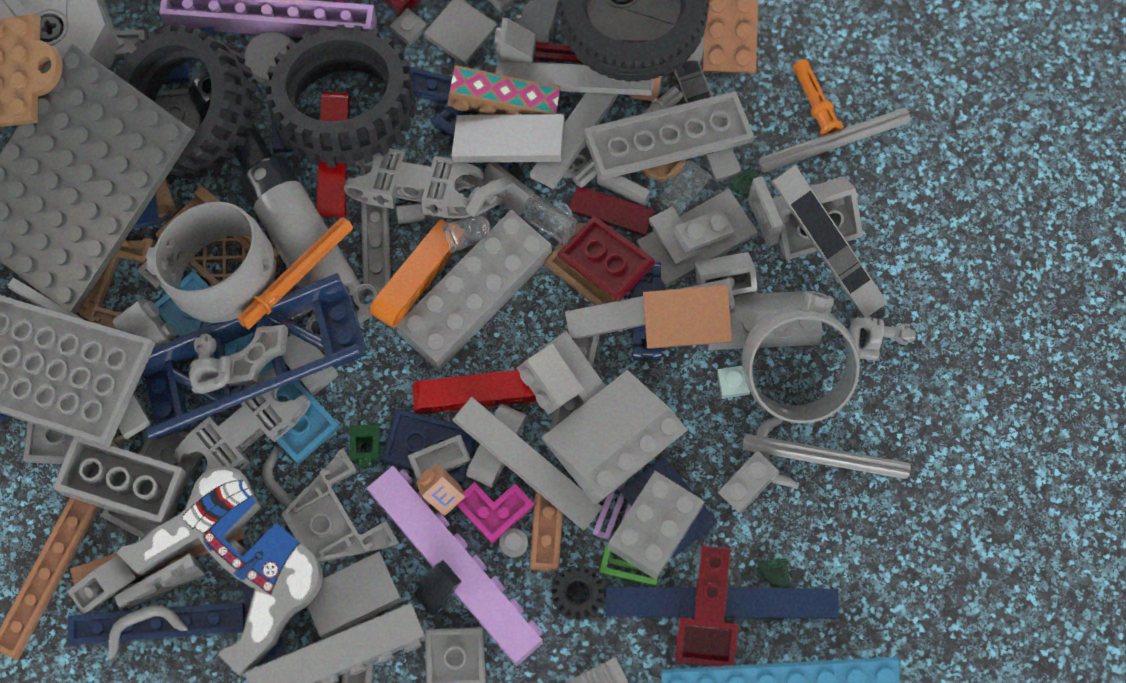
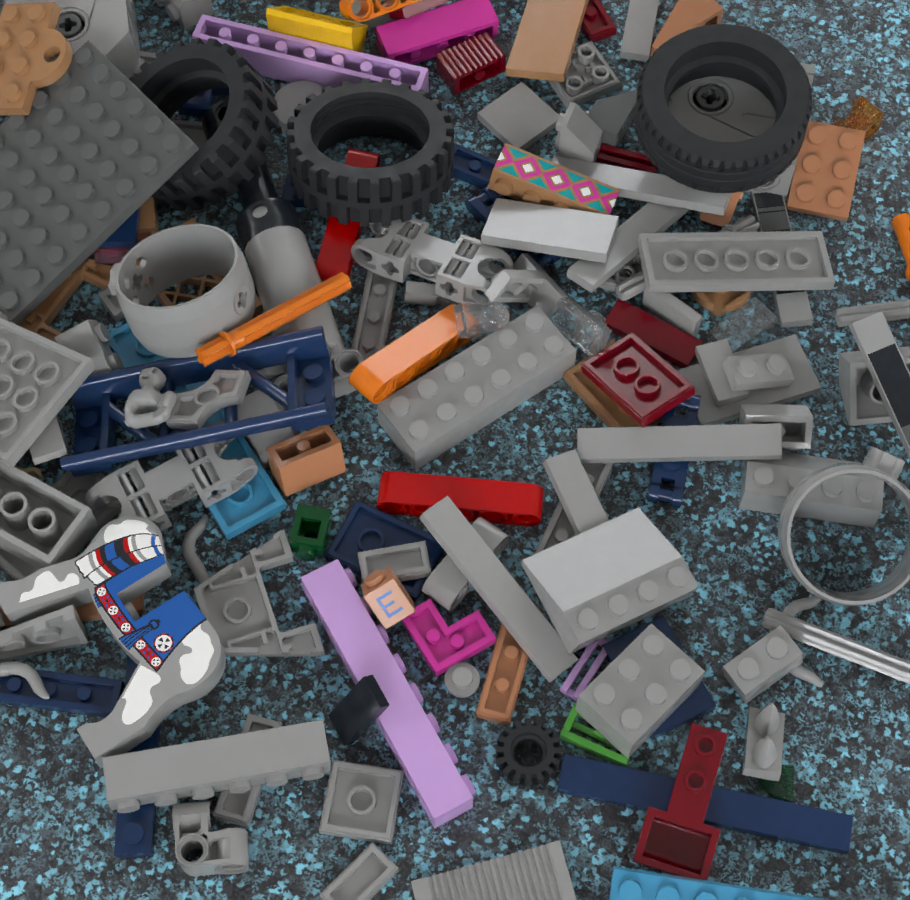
camera: 10 degrees right, 10 degrees down
(141, 234) = (110, 255): none -> clear pink tile
(347, 385) = (306, 459): none -> nougat brick
(353, 596) = (256, 700): light grey tile -> none
(408, 27) = (461, 105): light grey plate -> none
(549, 379) = (544, 496): light grey brick -> none
(687, 317) = (722, 457): nougat tile -> none
(732, 382) = (762, 549): light aqua plate -> none
(742, 183) = (817, 335): clear green tile -> none
(760, 545) = (764, 743): none -> light grey tile
(765, 211) = (834, 363): light grey tile -> none

